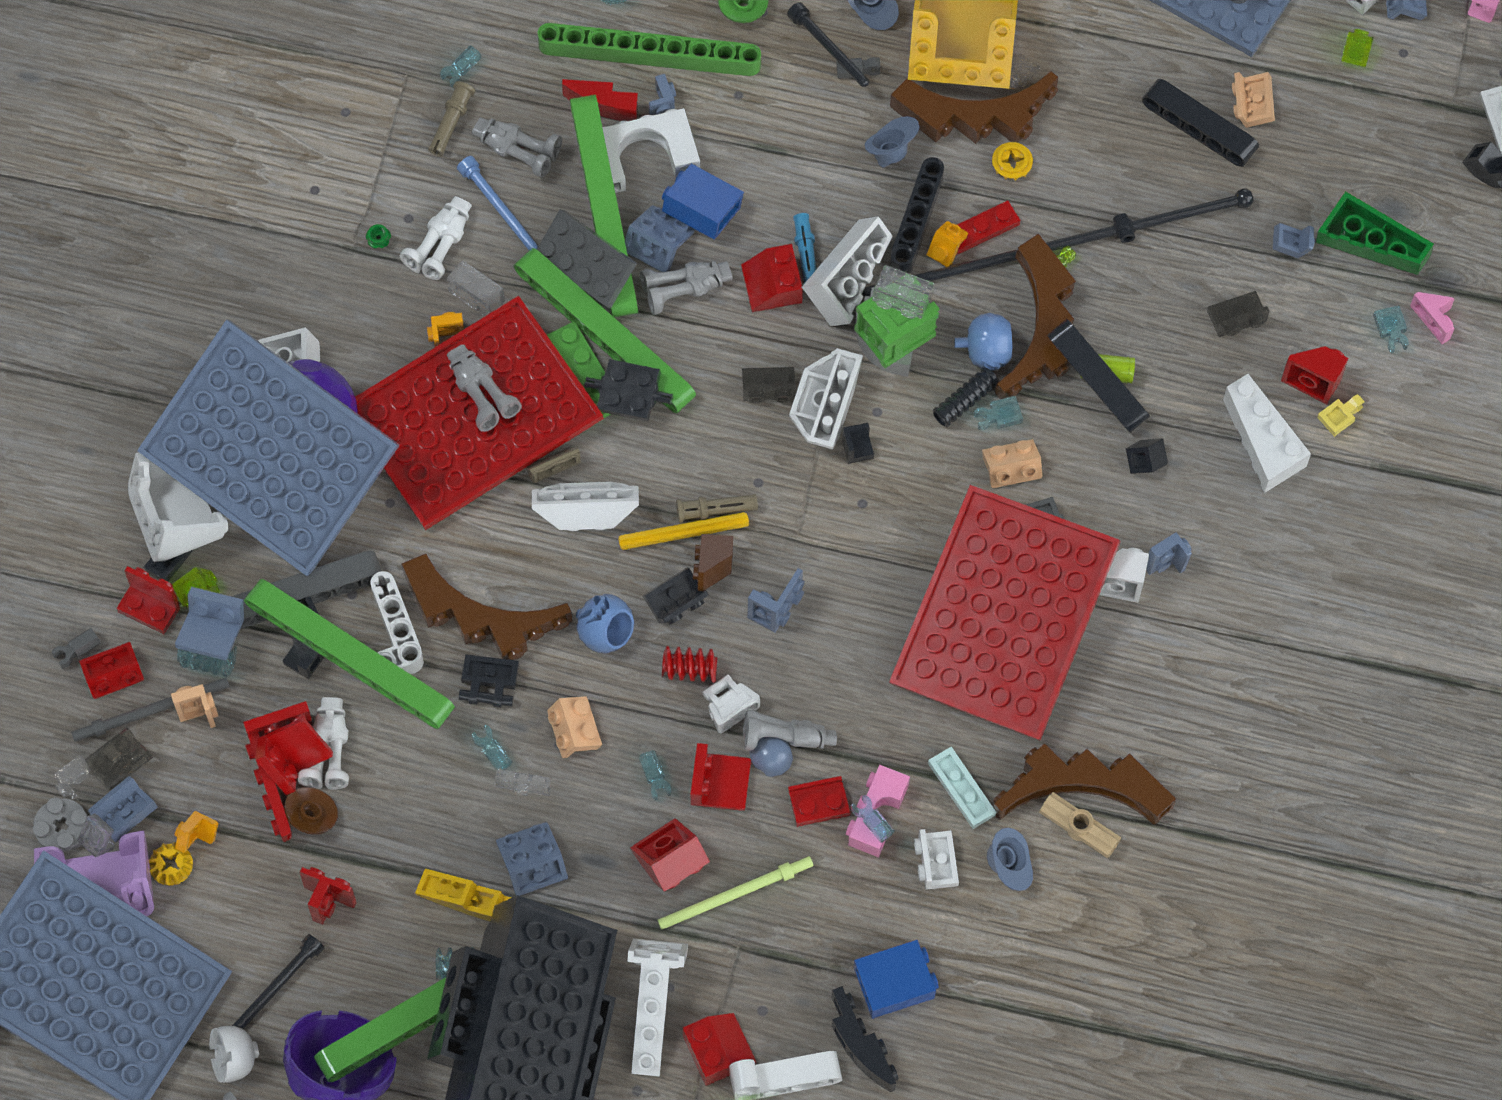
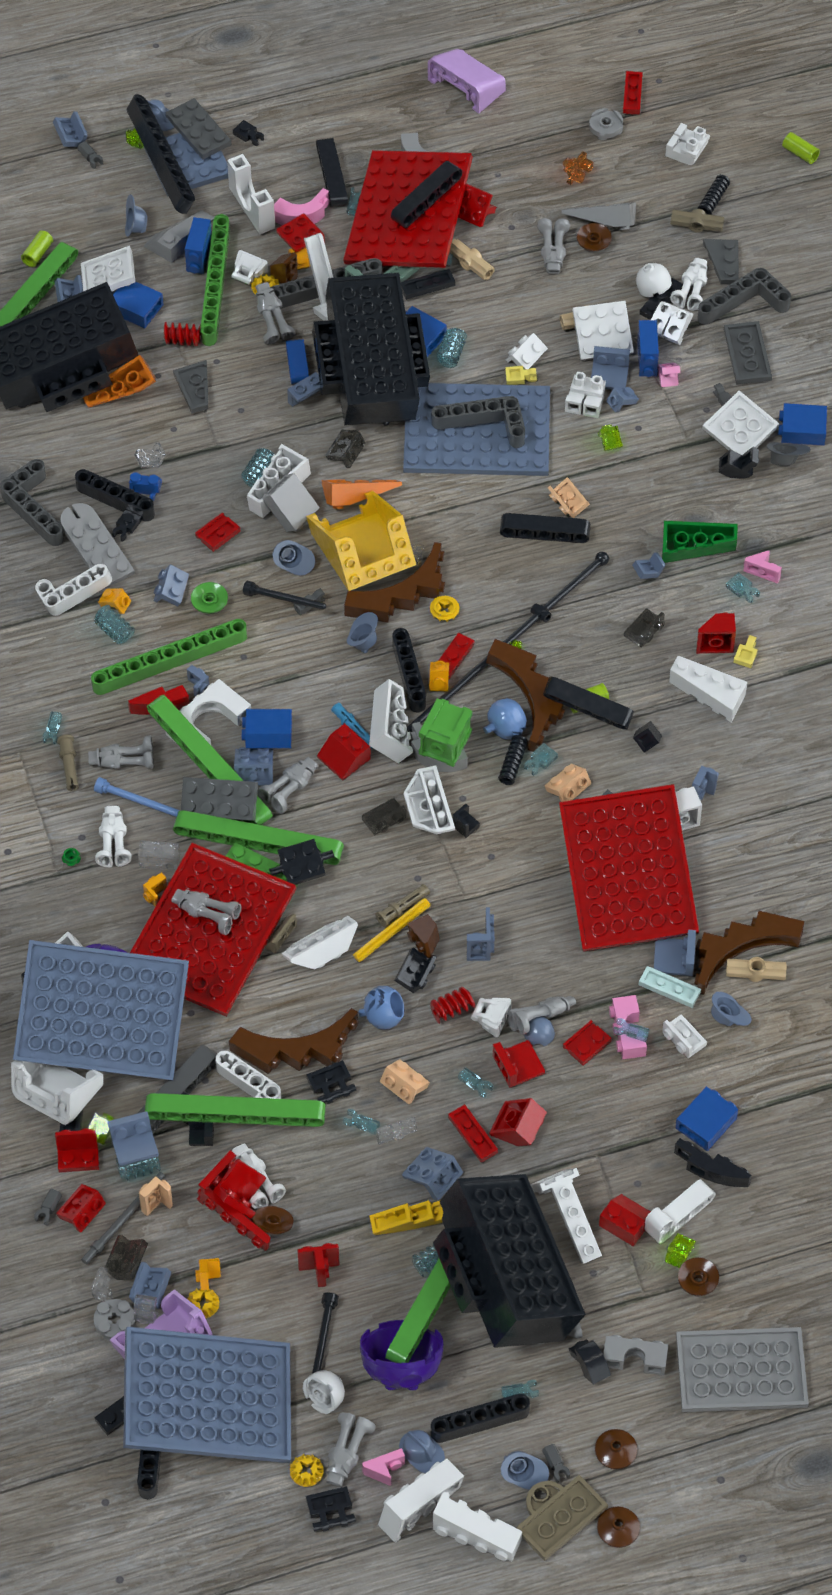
camera: 30 degrees left, 10 degrees down
(609, 837) = (473, 1133): none -> red plate
(785, 871) = (595, 1095): yellowish green bar -> none
(902, 292) = (444, 708): clear brick -> none
(995, 752) = (675, 955): none -> sand blue bracket

